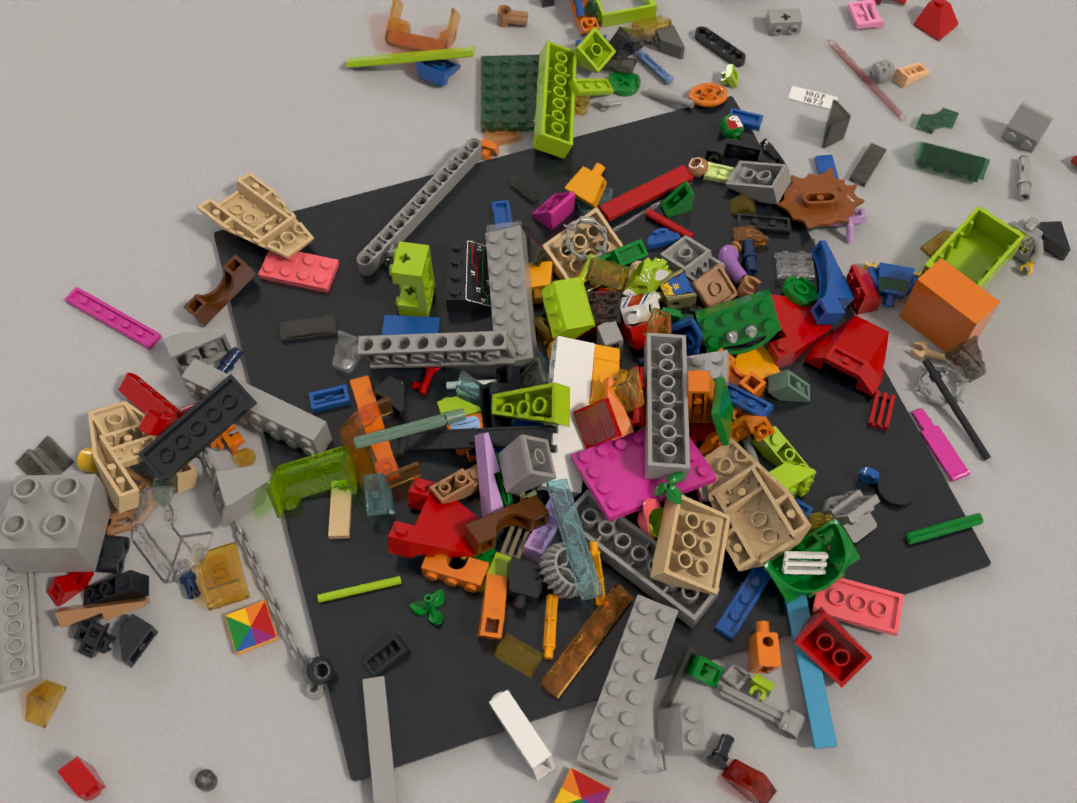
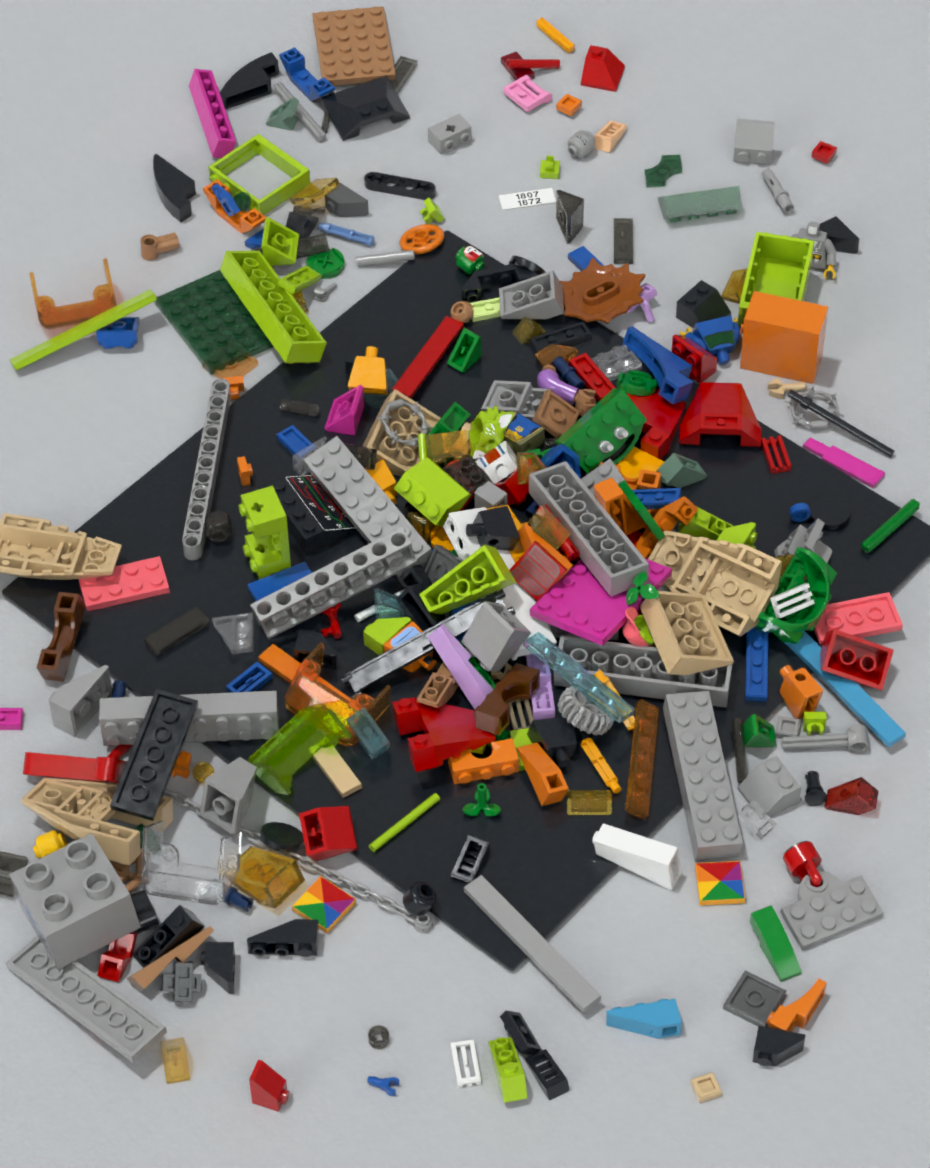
camera: 30 degrees left, 10 degrees down
(204, 645) = (290, 938): none -> black slope
(258, 548) = (281, 835): none -> black tile
(290, 566) = (328, 832): none -> red slope
(446, 220) = (244, 470): none -> orange plate
(446, 418) = (385, 639): sand green axle -> none
(585, 367) = (495, 529): none -> black torso
(662, 237) = (472, 393): blue tile -> none
(668, 223) = (468, 378): red piece -> none
(749, 120) = (485, 245): blue tile -> none
(767, 268) = (591, 375): none -> red plate
(845, 80) = (549, 168): none -> lime tile
(876, 88) = (569, 159): piece -> none
(892, 36) = (569, 104): none -> orange plate
(898, 248) = (701, 305): none -> black slope
(968, 359) = (826, 374): clear smoke wing -> none

